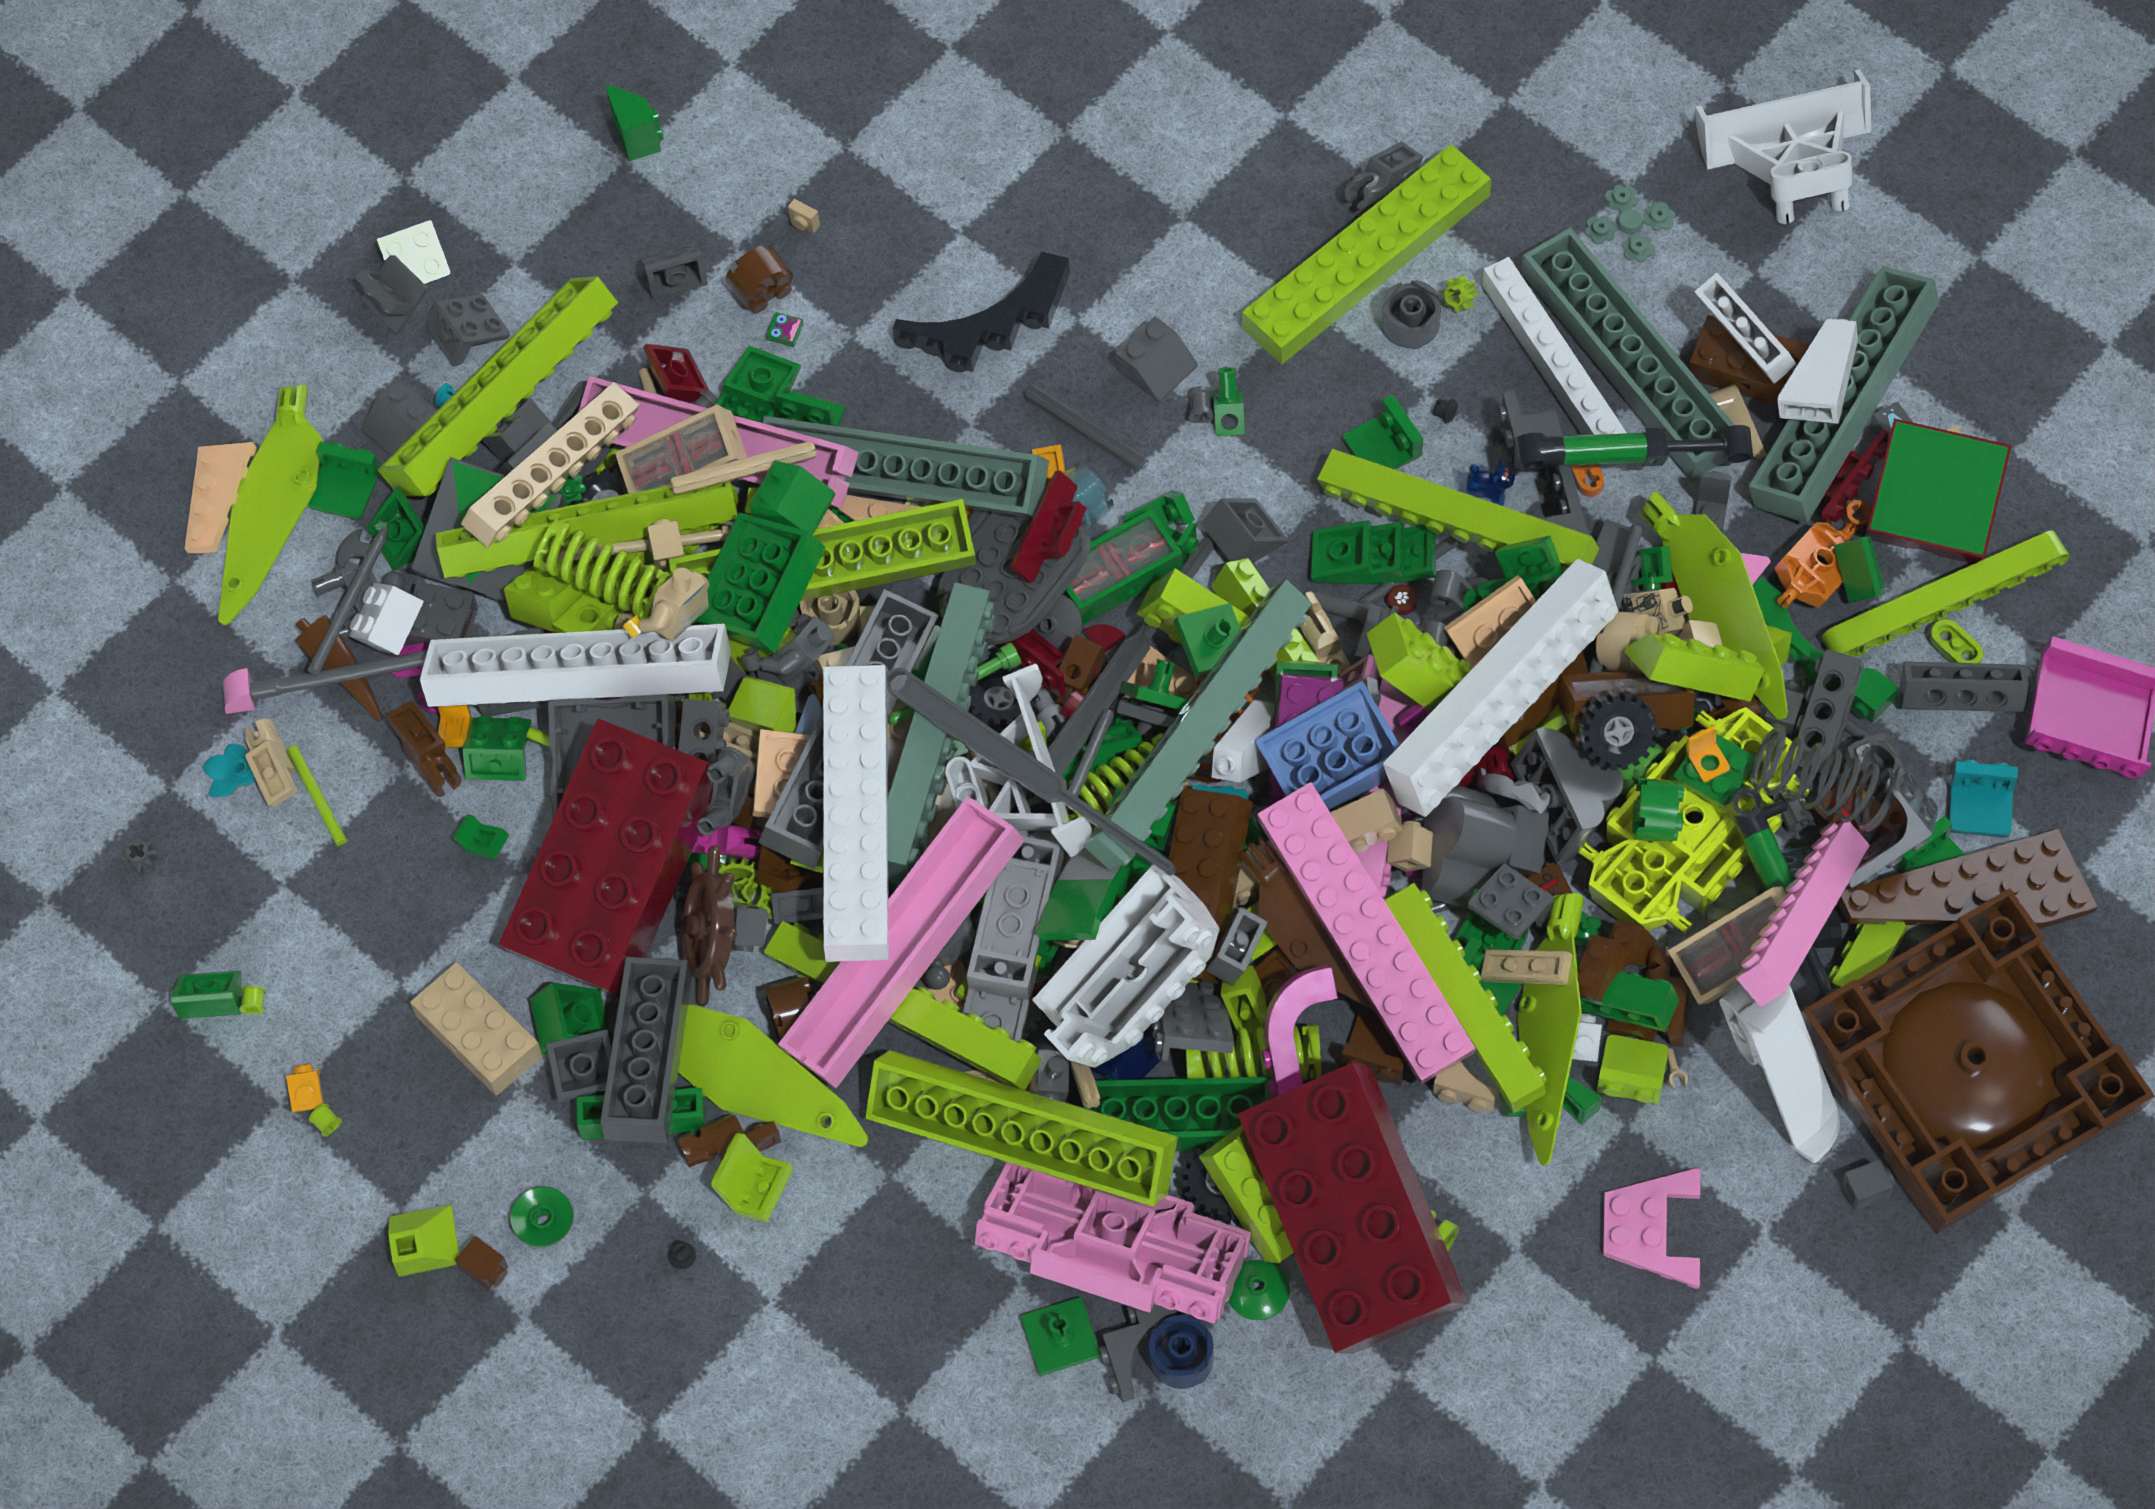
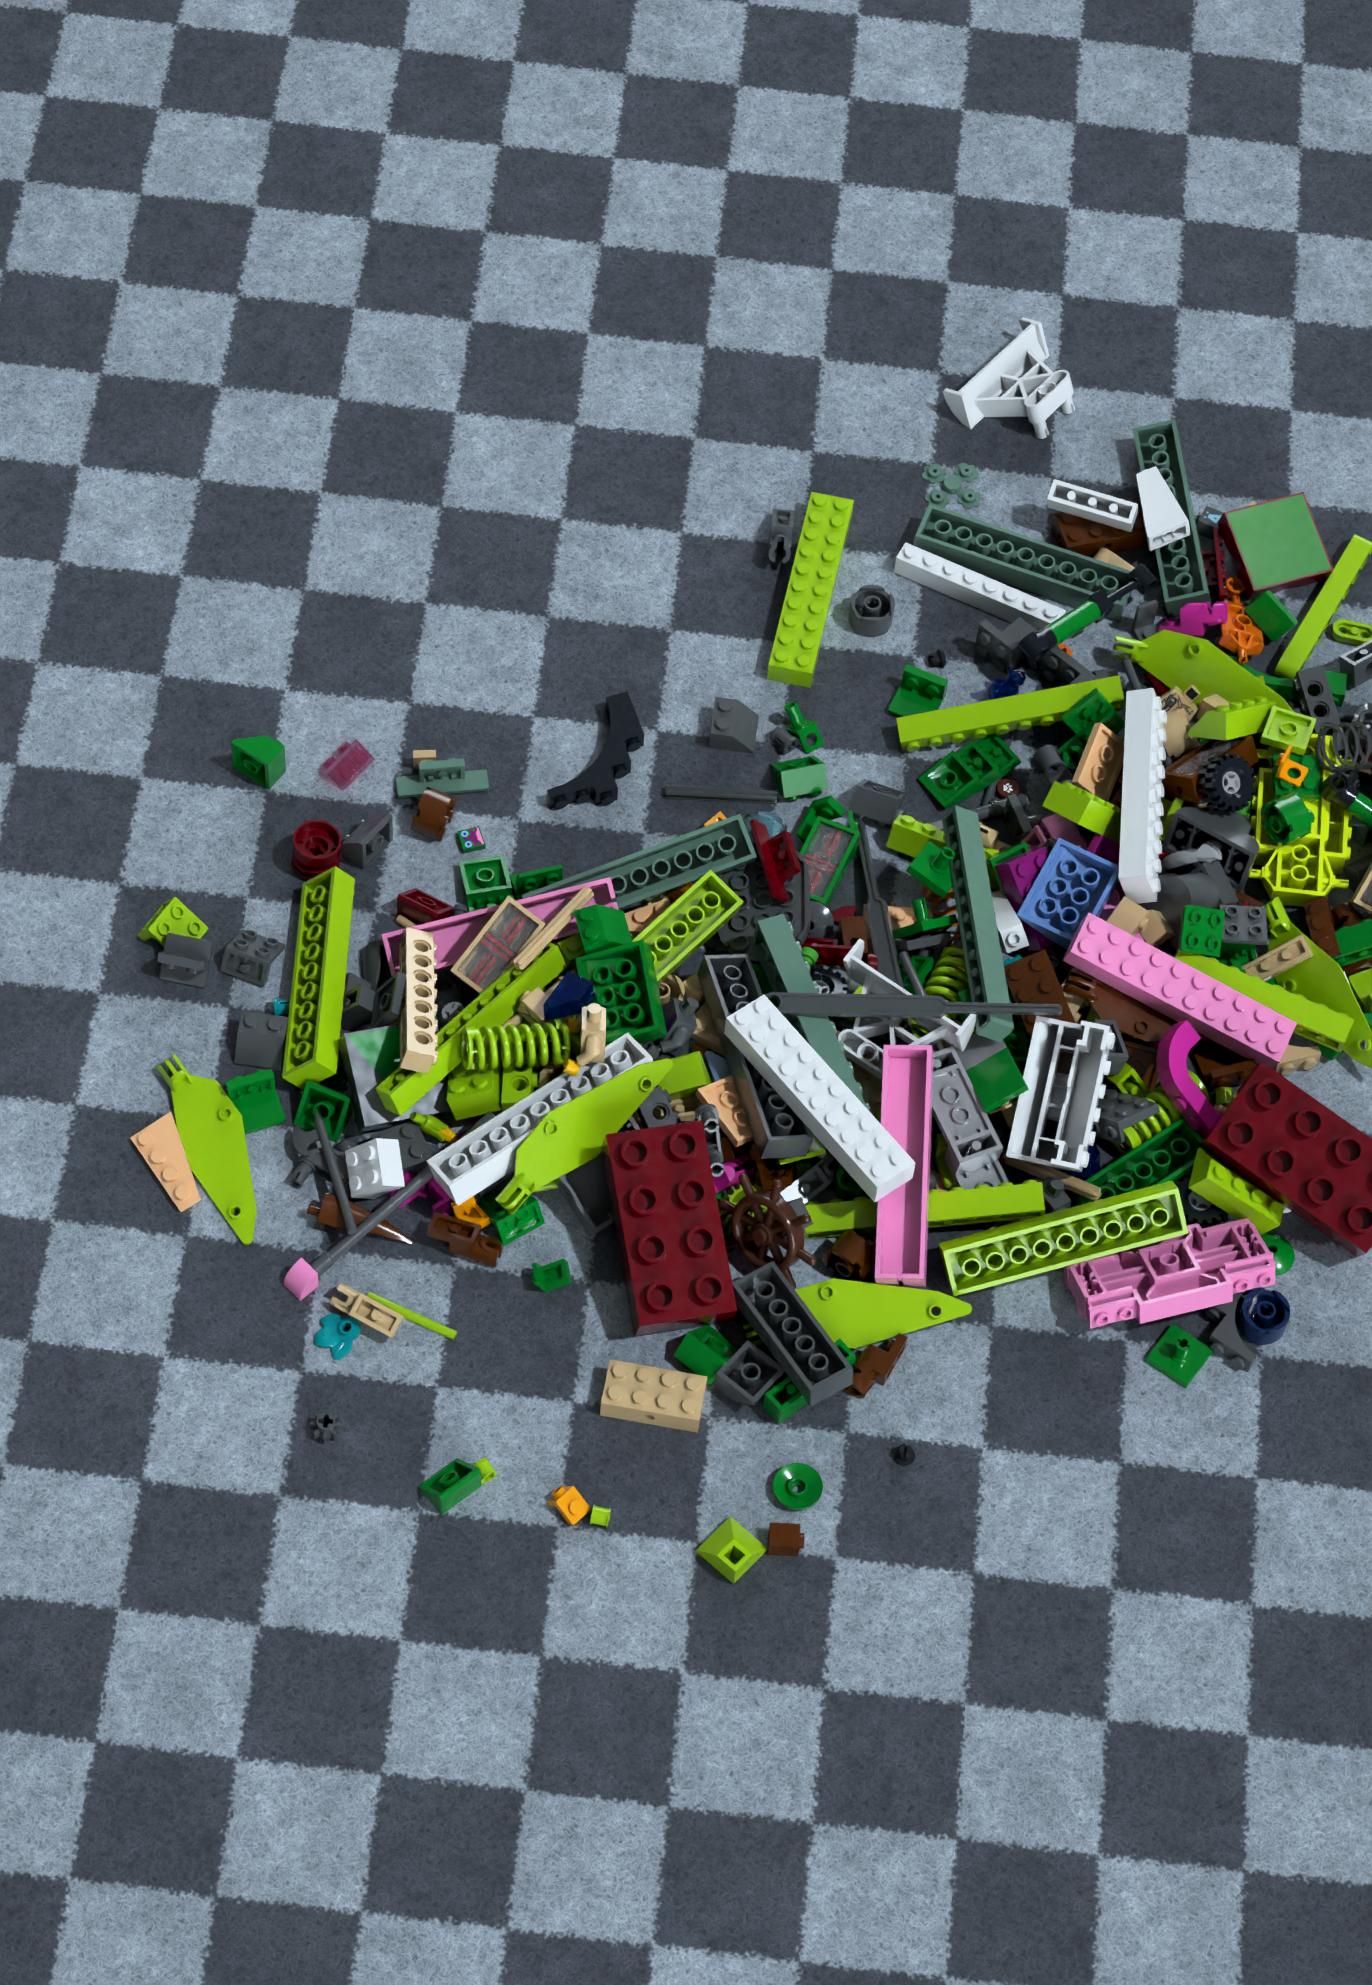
camera: 45 degrees left, 5 degrees down
(488, 611) = (434, 1127): none -> lime piece
(572, 694) = (577, 1131): none -> lime wing
(610, 250) = (315, 848): none -> dark red wheel
(692, 549) = (569, 997): none -> clear blue slope
(724, 178) = (347, 763): none -> clear pink bracket
(750, 1180) = (916, 1379): lime bracket -> none
(805, 247) = (442, 775): none -> sand green bracket
(1177, 596) = (886, 866): lime brick -> none
(1180, 455) = (800, 777): none -> slope
(1445, 879) = (1201, 930): none -> green bracket
(1453, 296) = (886, 577): lime gear -> none
(1654, 568) = (1149, 678): green bracket -> none
(1745, 710) = (1288, 729): none -> lime plate
(1768, 525) = (1196, 616): none -> dark pink plate

